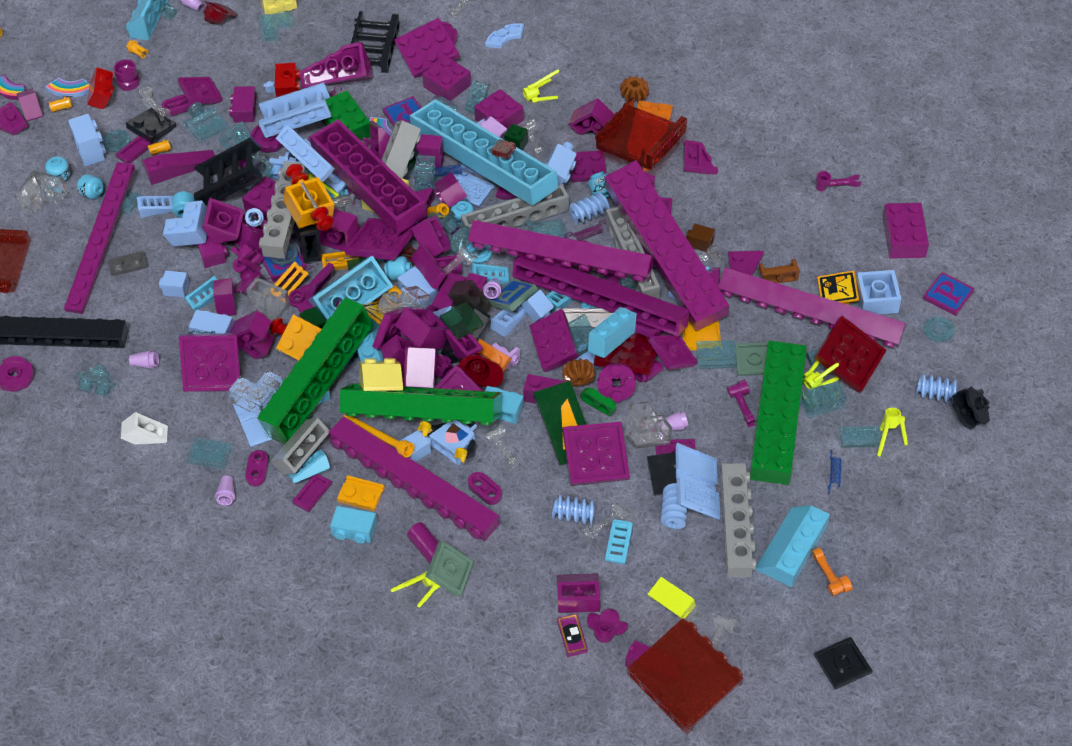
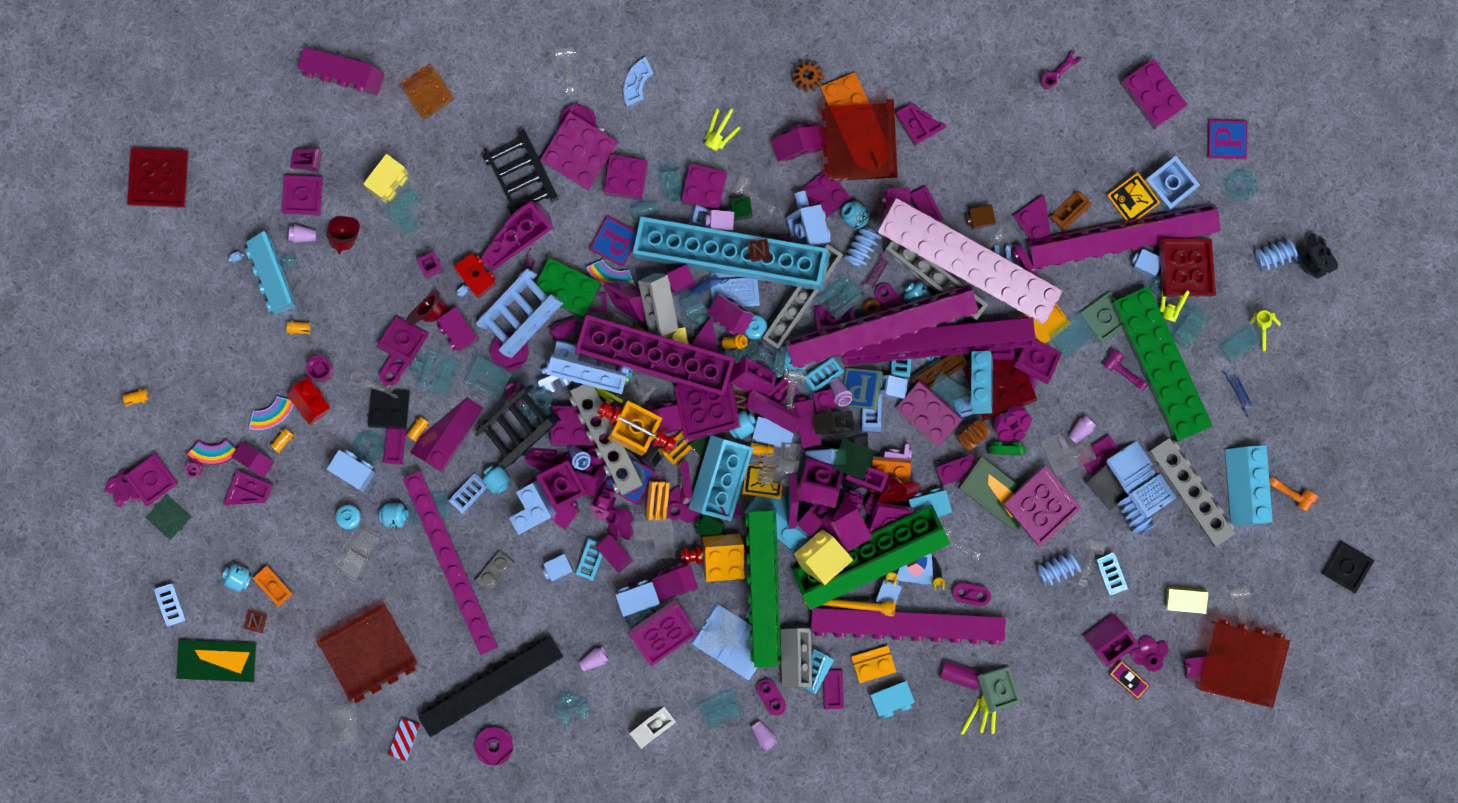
camera: 35 degrees left, 30 degrees up
(237, 79) = (428, 310): none -> dark red piece
(260, 56) = (430, 265): none -> magenta brick
(815, 335) = (1146, 263): none -> light blue brick

